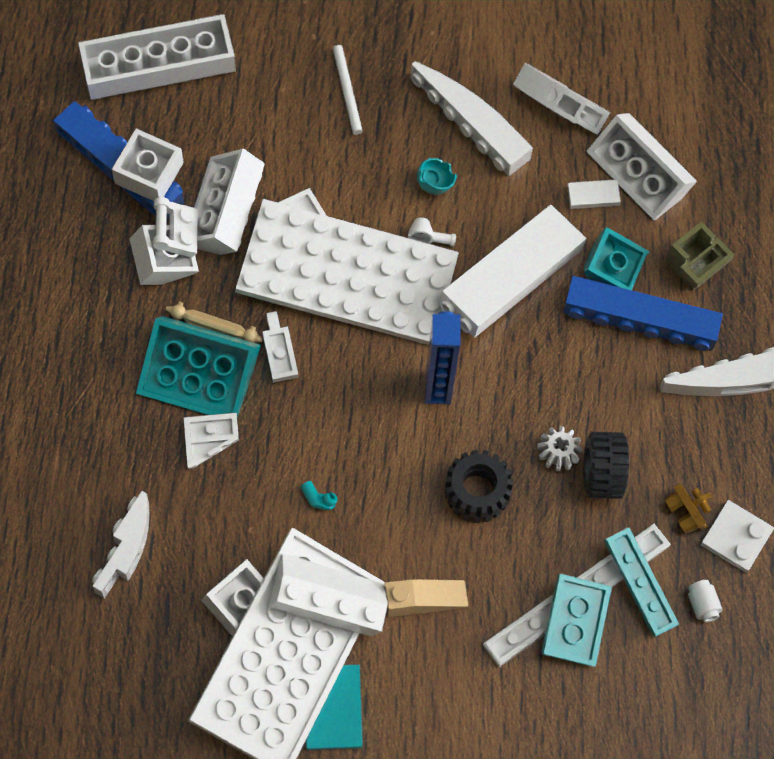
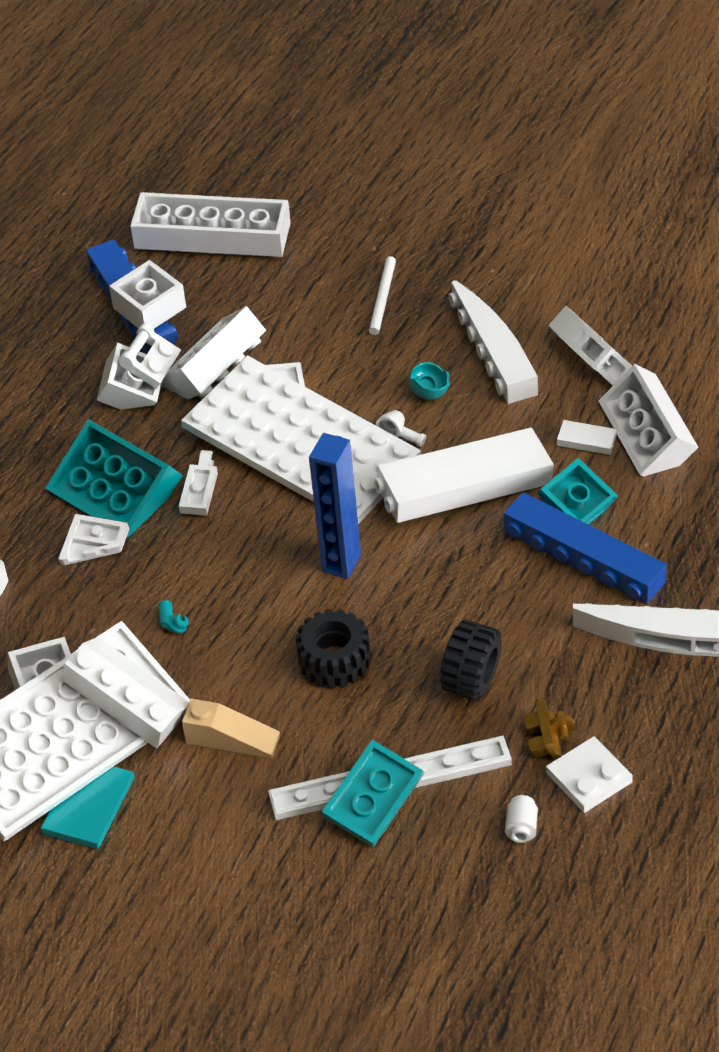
camera: 30 degrees right, 20 degrees down
(213, 323) = (147, 446): tan wheel -> none
(556, 456) = (431, 639): white gear -> none
(641, 582) = (459, 780): plate -> none
(698, 256) = (666, 510): olive plate -> none

